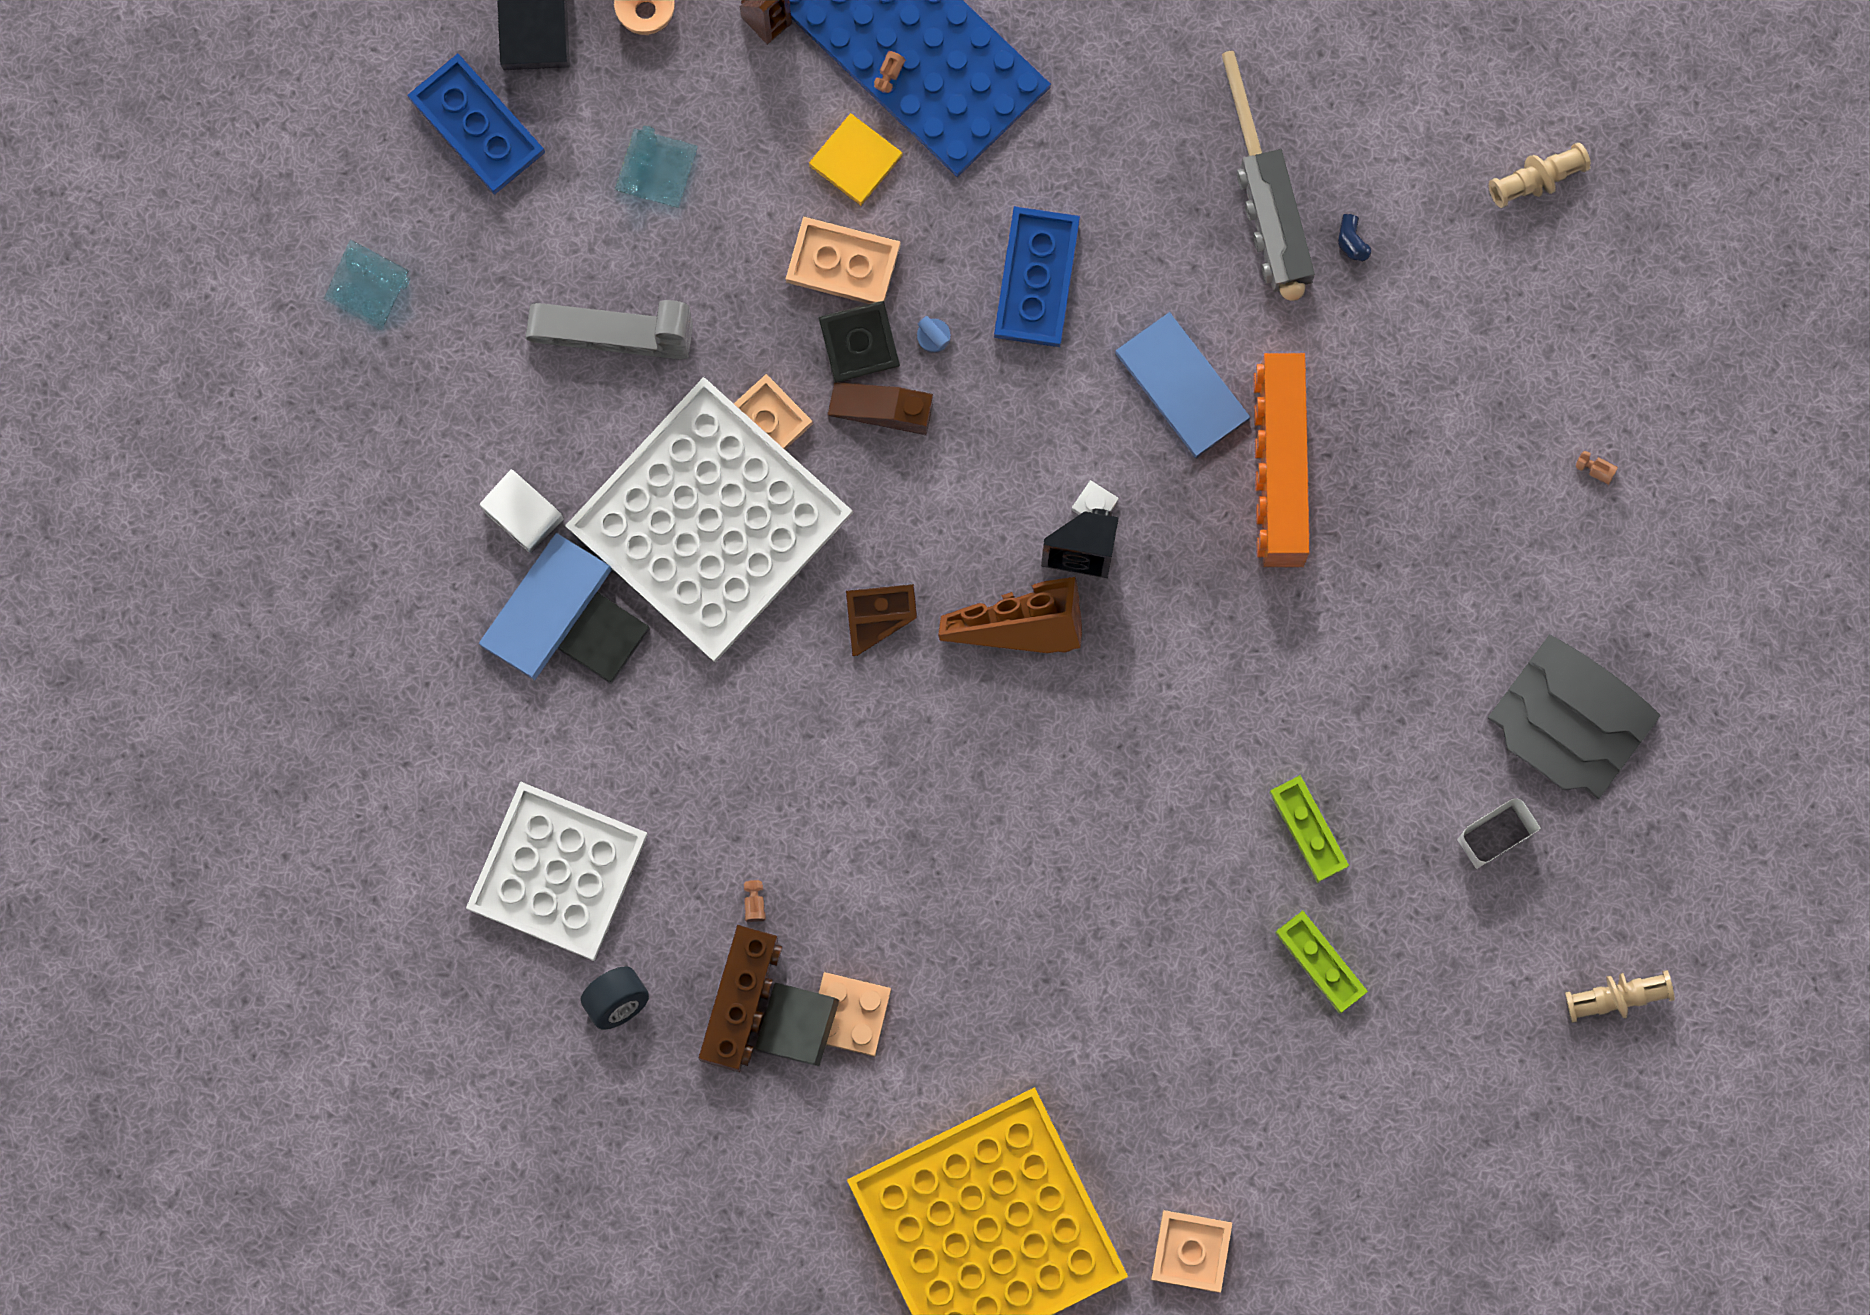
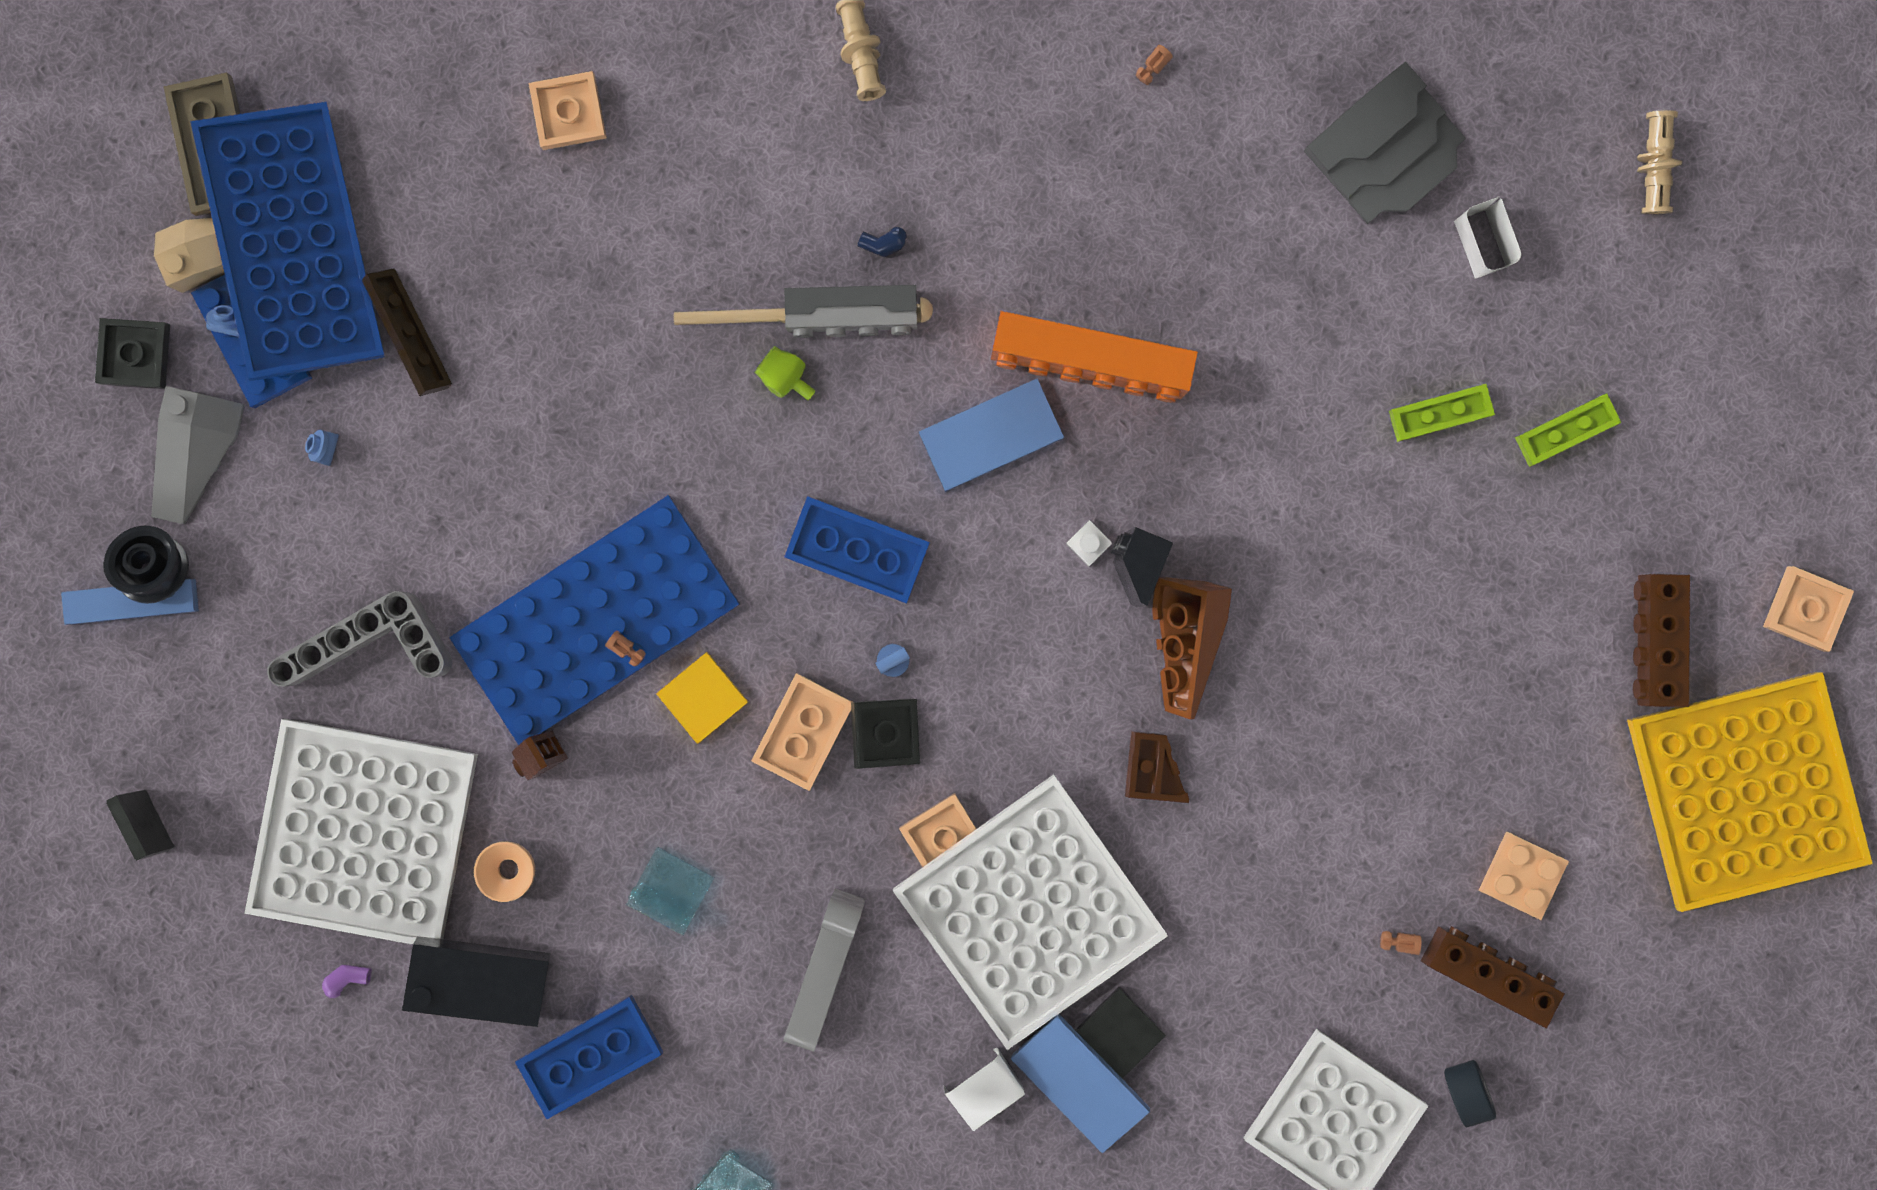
camera: 70 degrees left, 10 degrees up
(797, 1024) = (1528, 928): pearl dark grey tile -> none
(882, 406) = (953, 725): reddish brown slope -> none
(1124, 1103) = (1662, 640): none -> reddish brown brick
(1197, 168) = (782, 373): none -> lime piece

